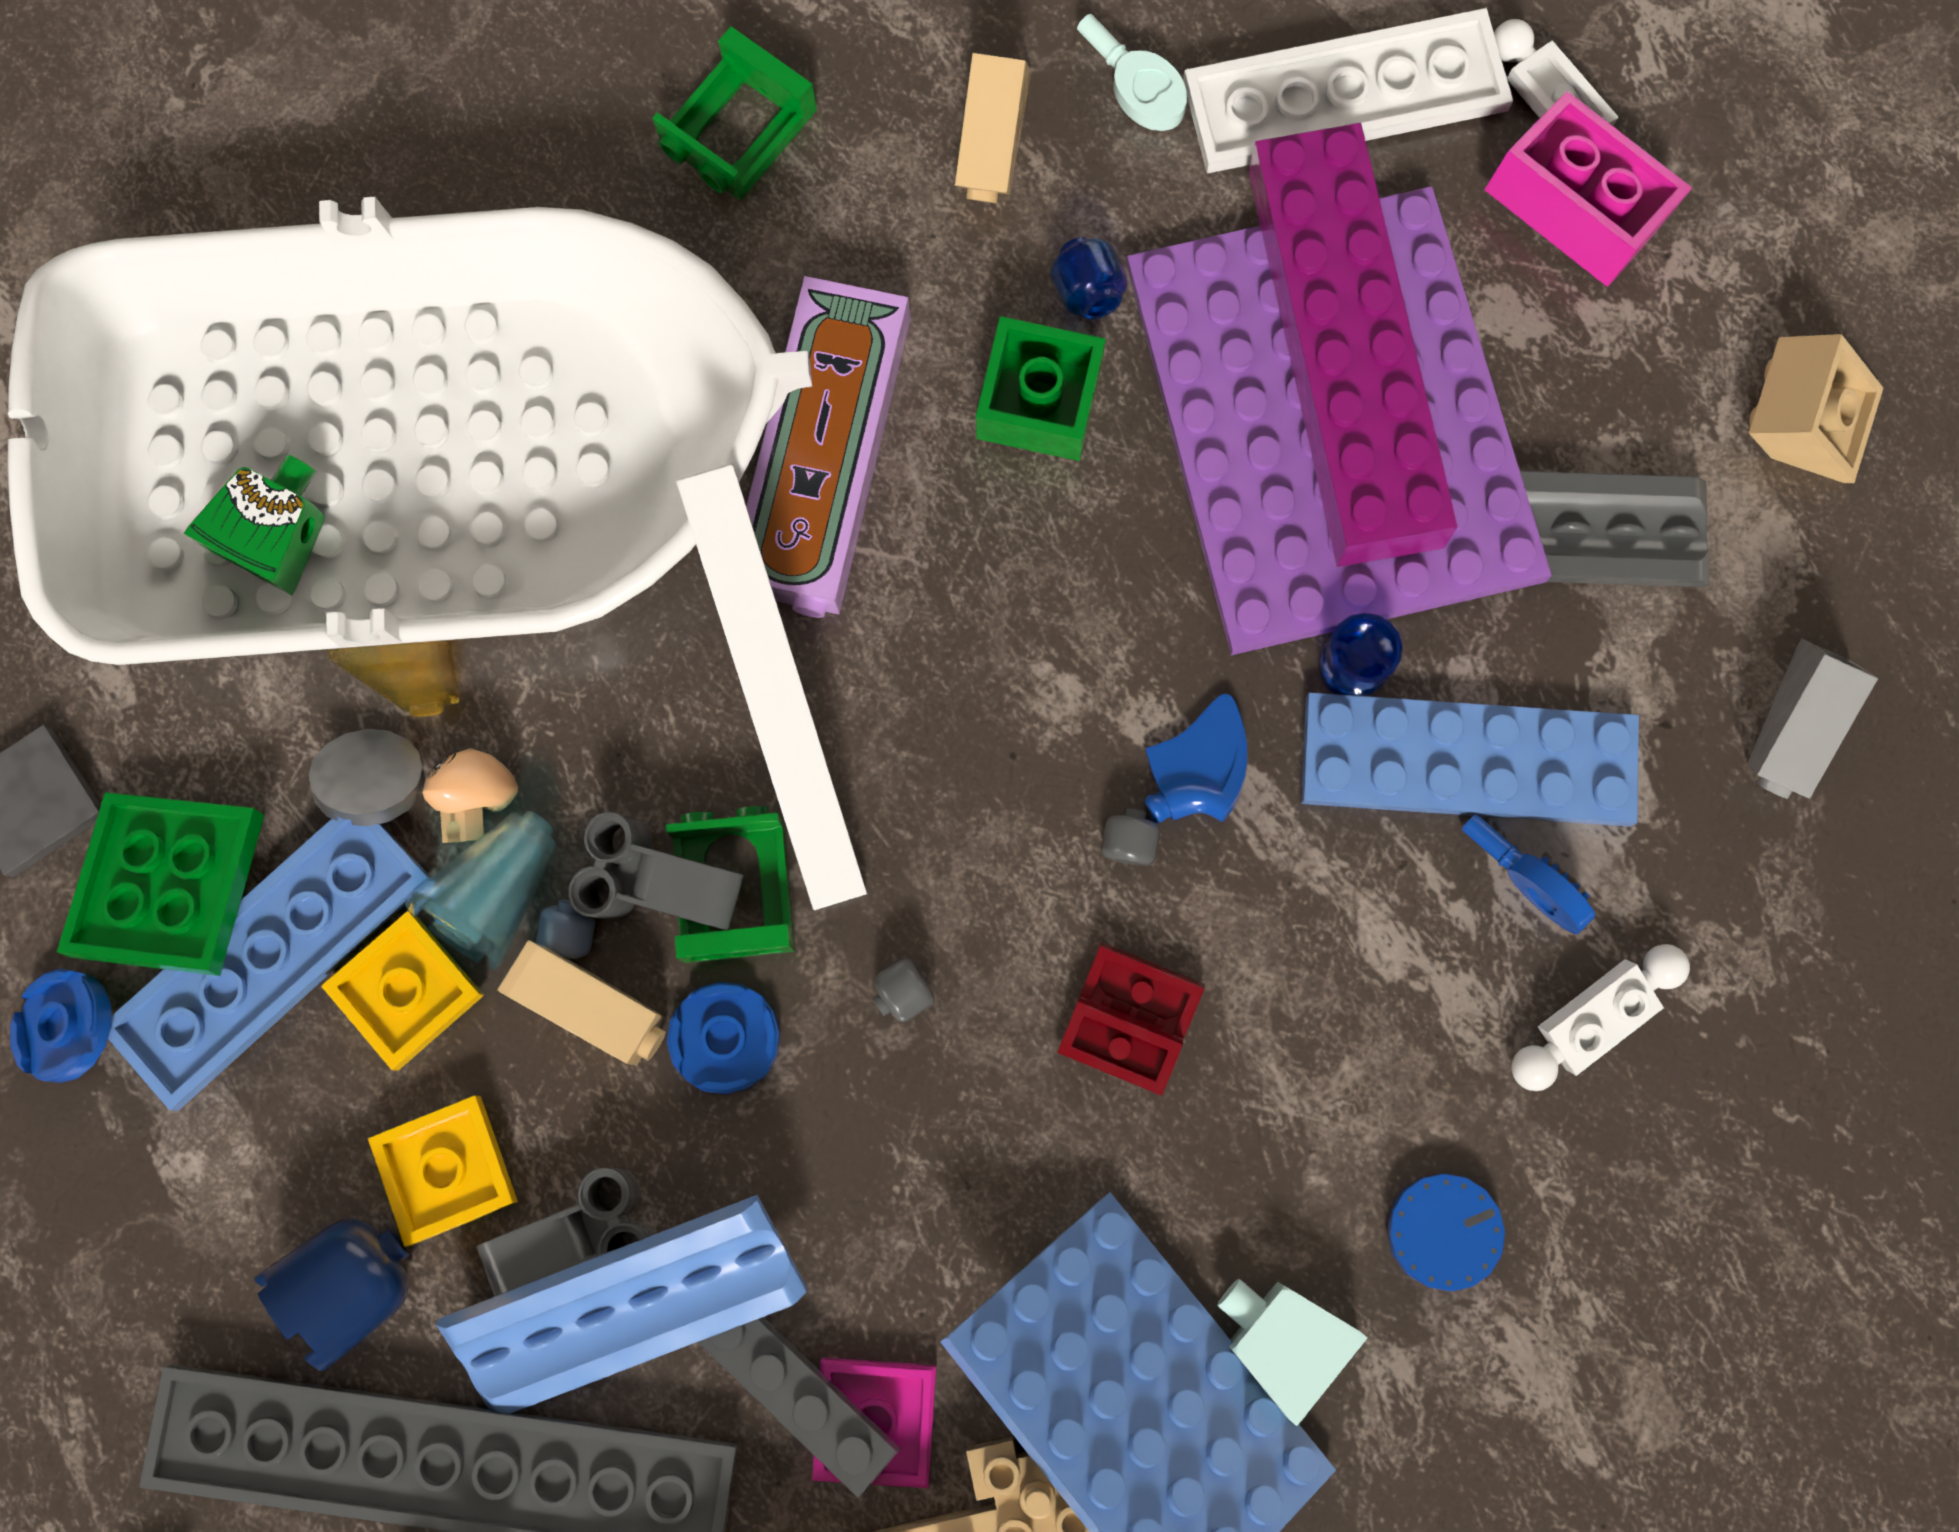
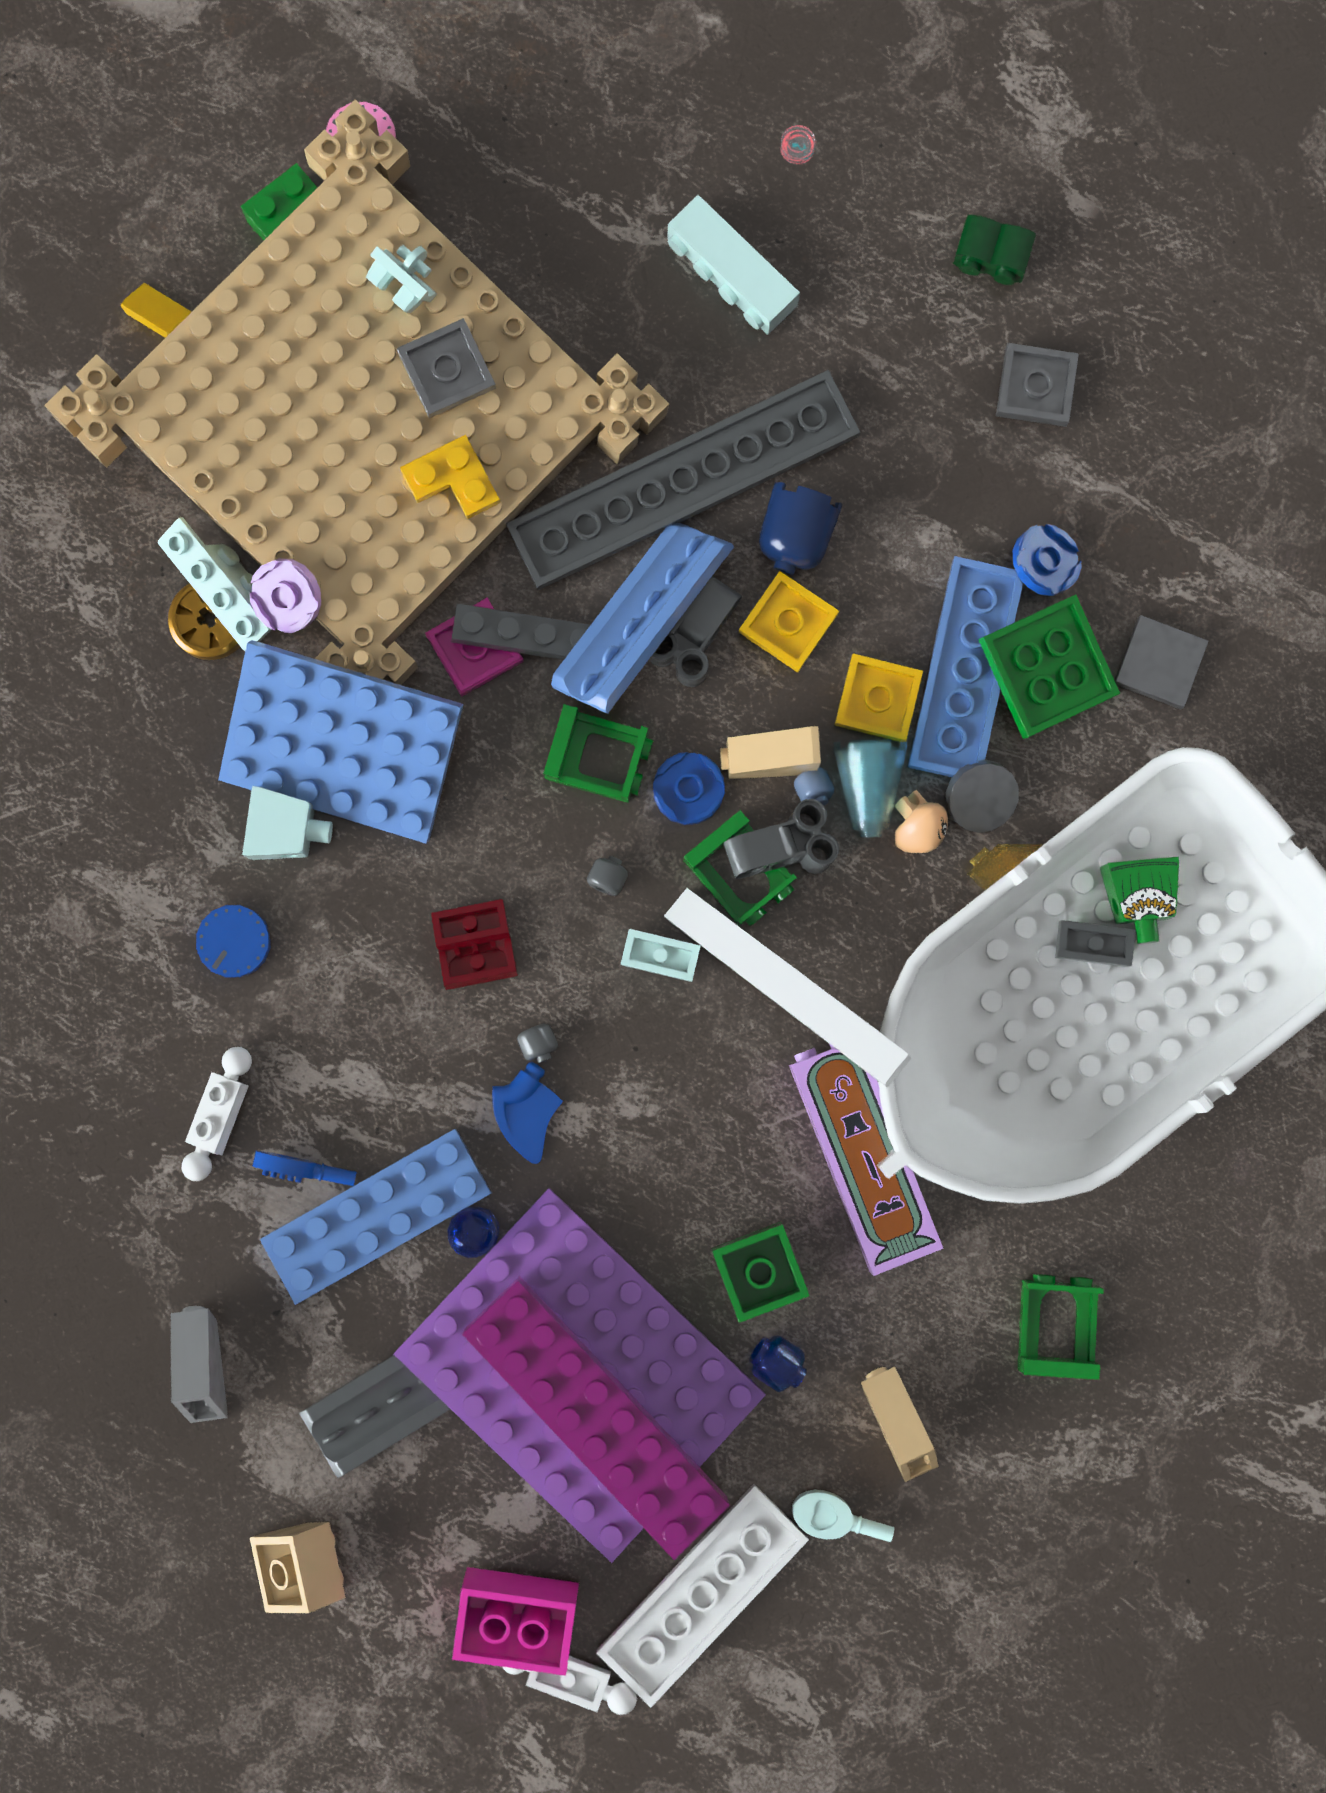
camera: 140 degrees right, 5 degrees up
(365, 504) = (1095, 943): none -> dark grey plate
(838, 1197) = (569, 745): none -> green window
(904, 846) = (660, 955): none -> light aqua plate

